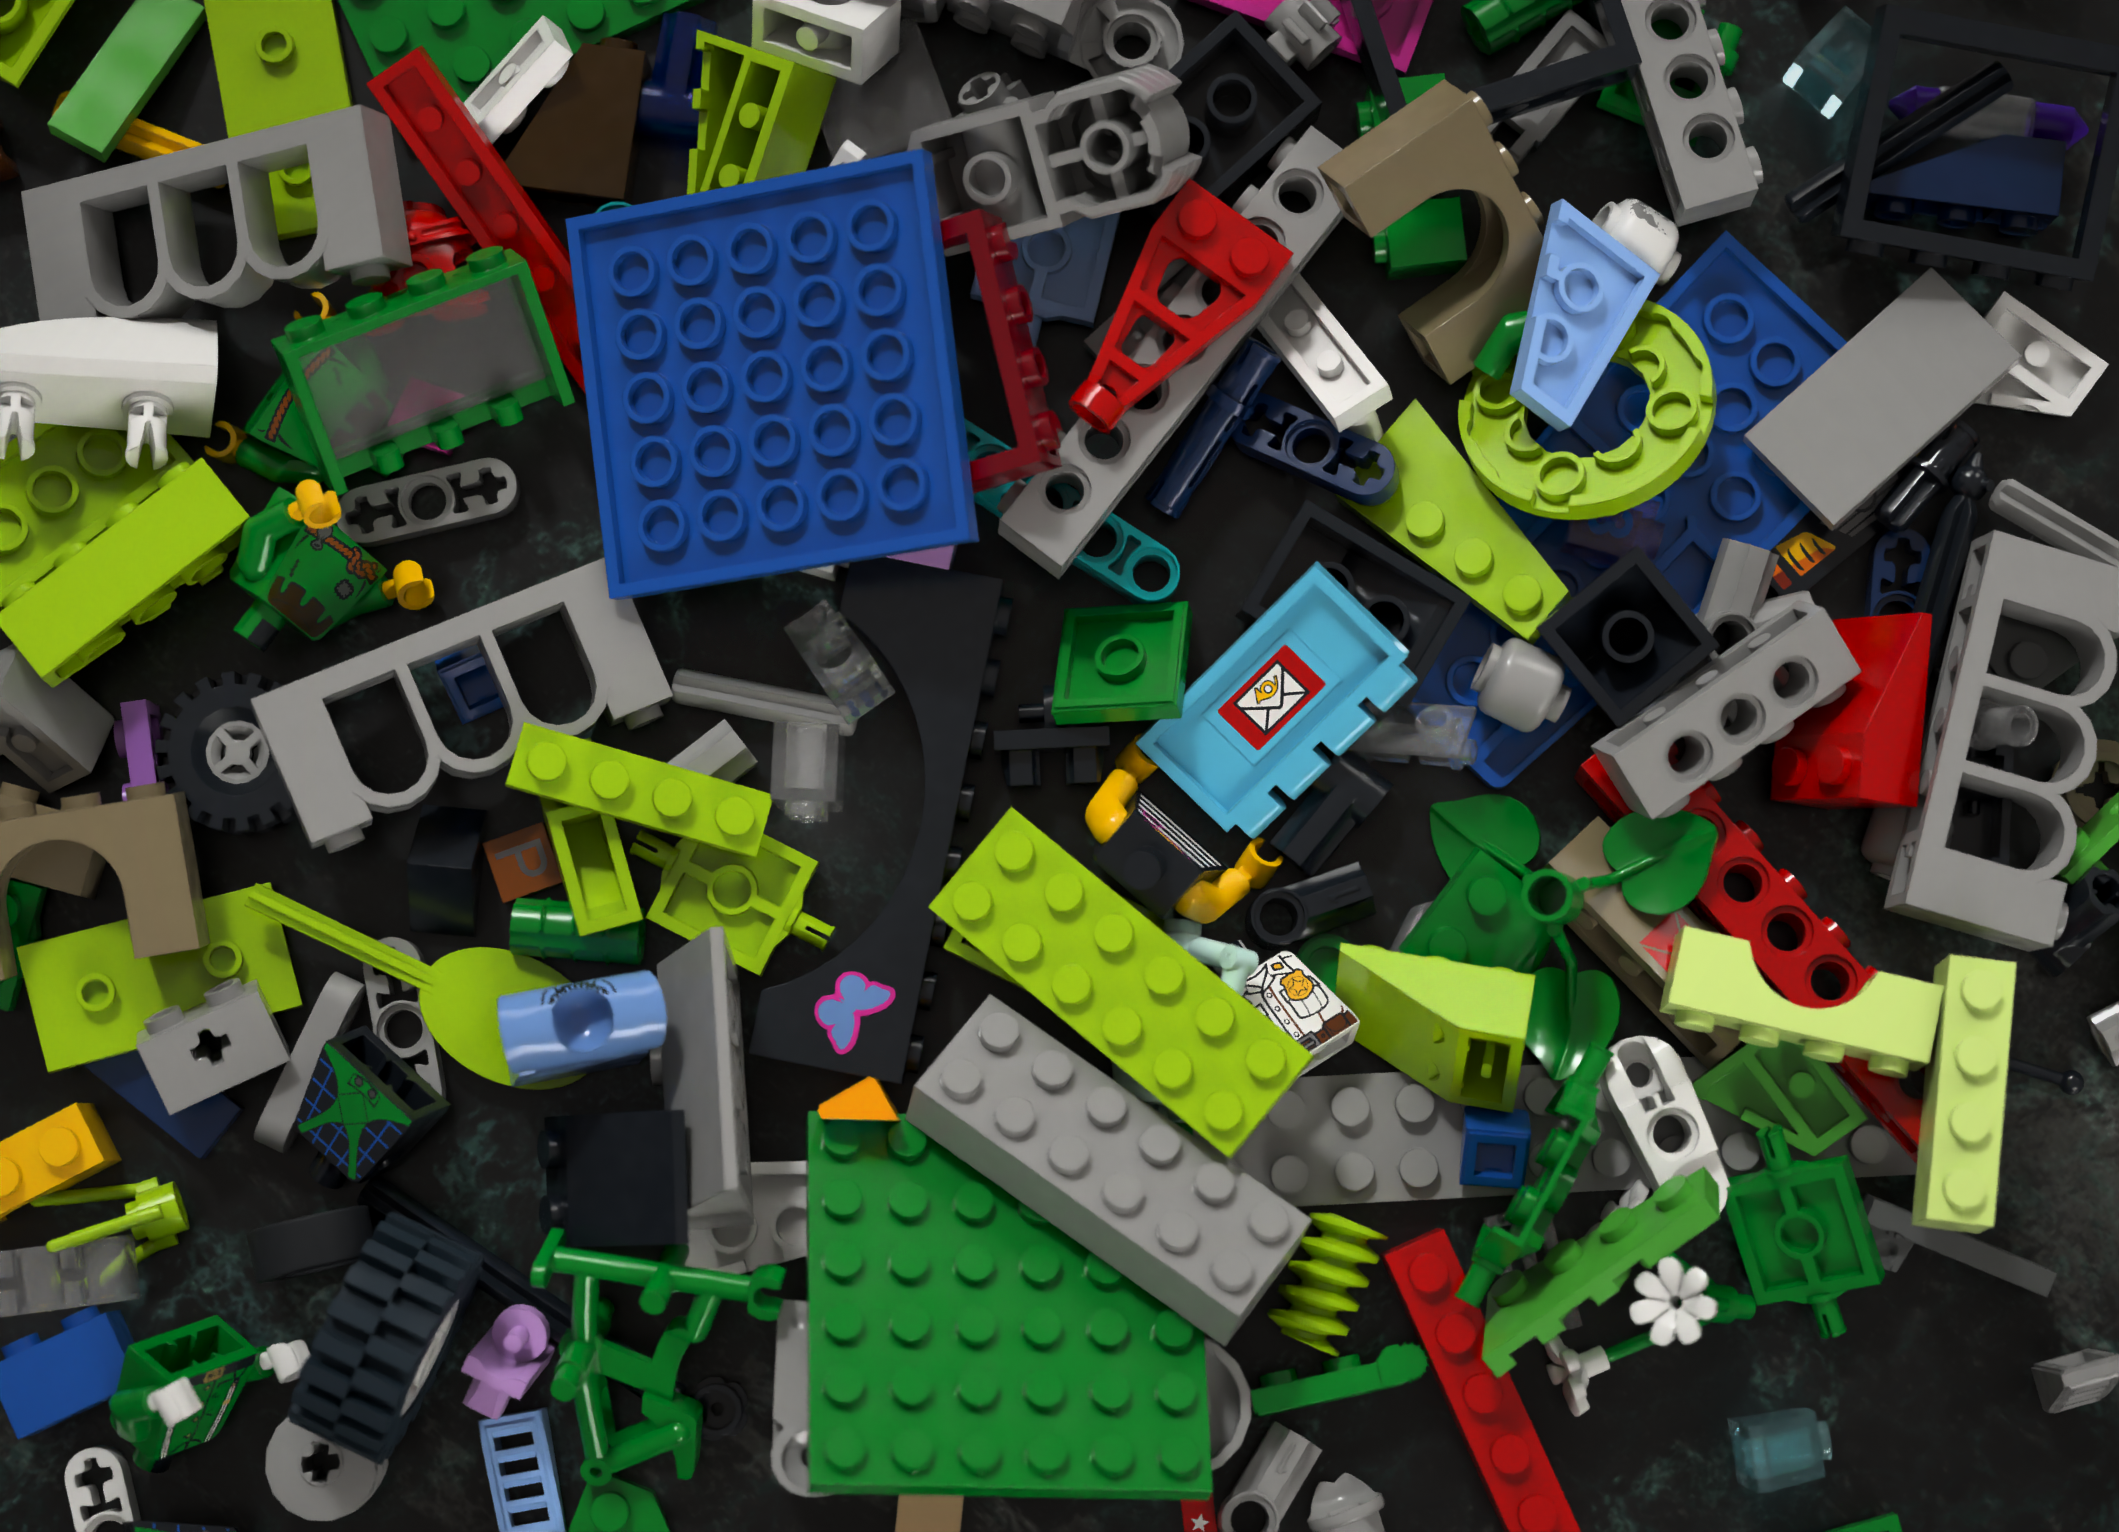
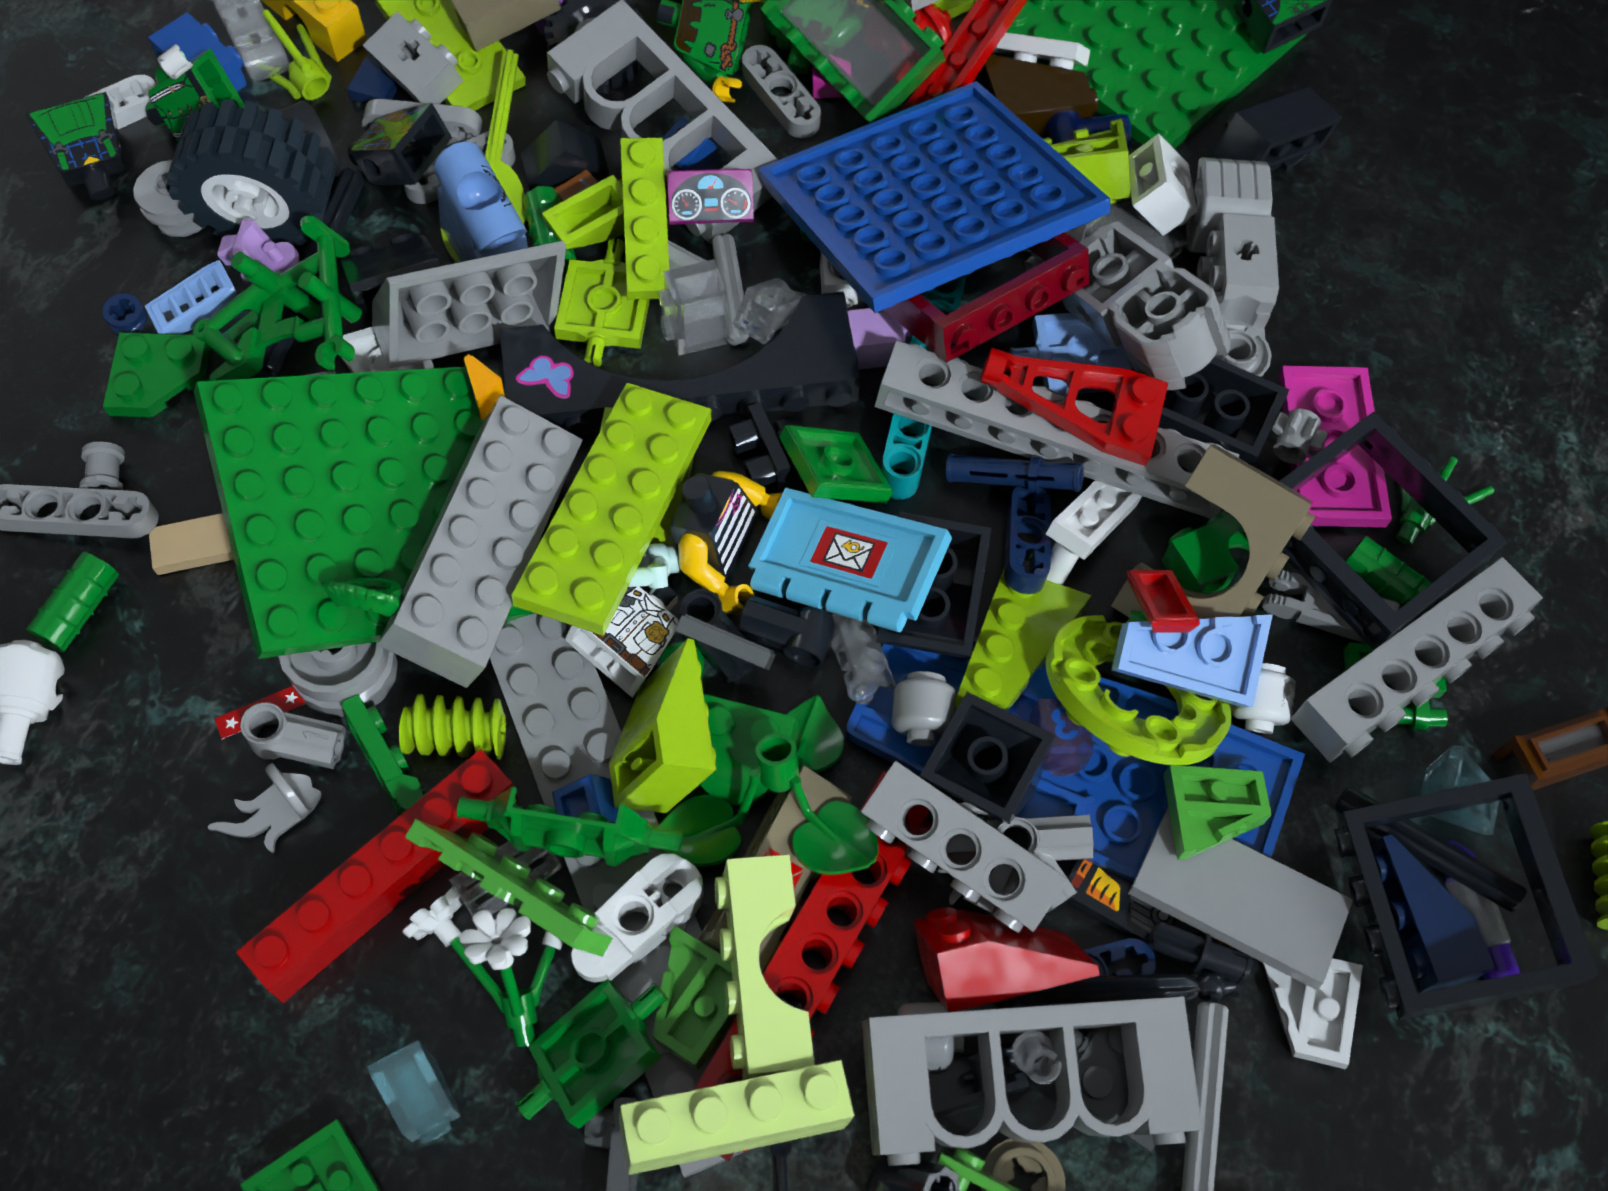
camera: 65 degrees right, 20 degrees down
(639, 686) = (710, 196): none -> slope
(1199, 1328) = (356, 595): none -> green piece
(1351, 902) = (725, 641): none -> dark grey tile
(1502, 331) = (1162, 601): none -> red tile
(1768, 382) = (1213, 805): none -> bright green wing

